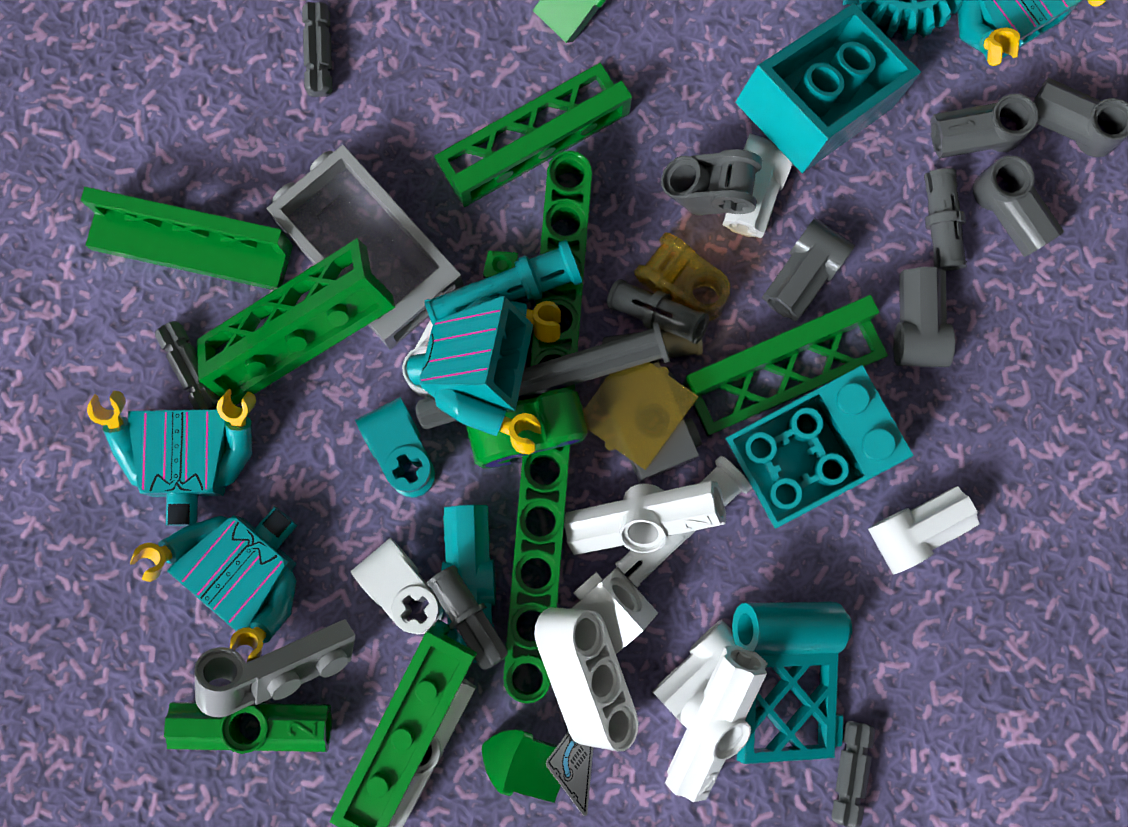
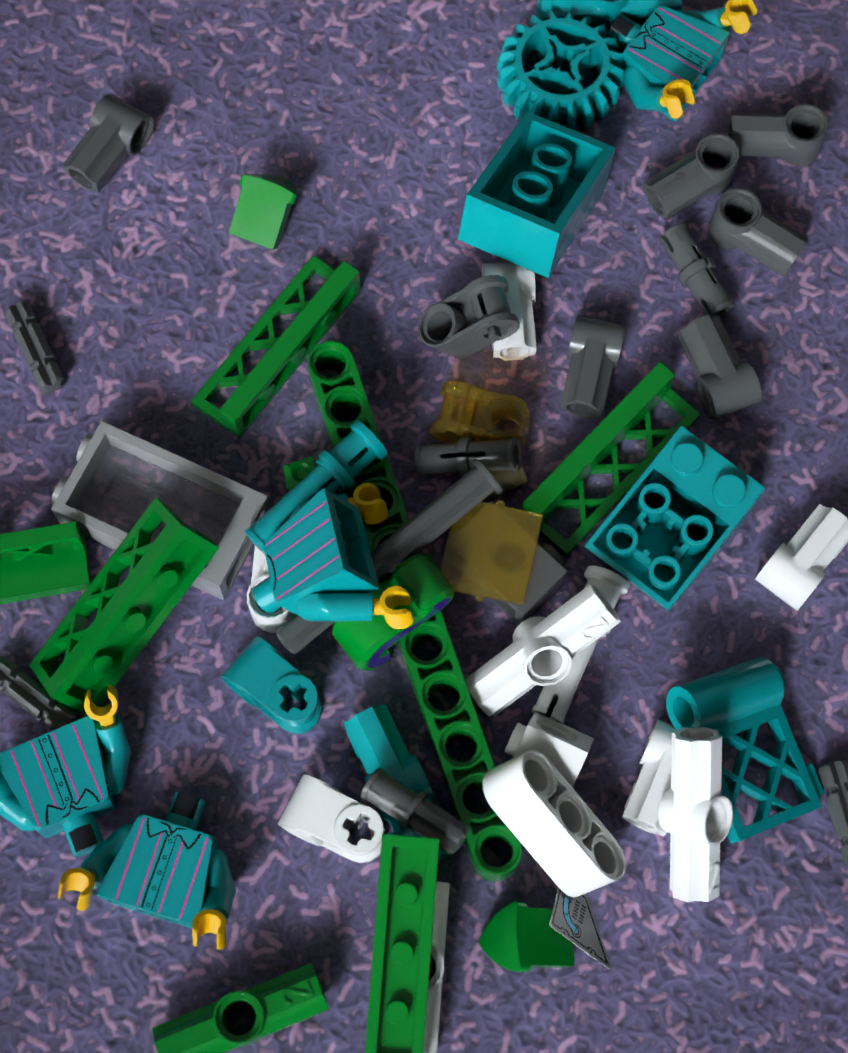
camera: 20 degrees left, 10 degrees down
(273, 674) = (211, 971): light grey plate -> none

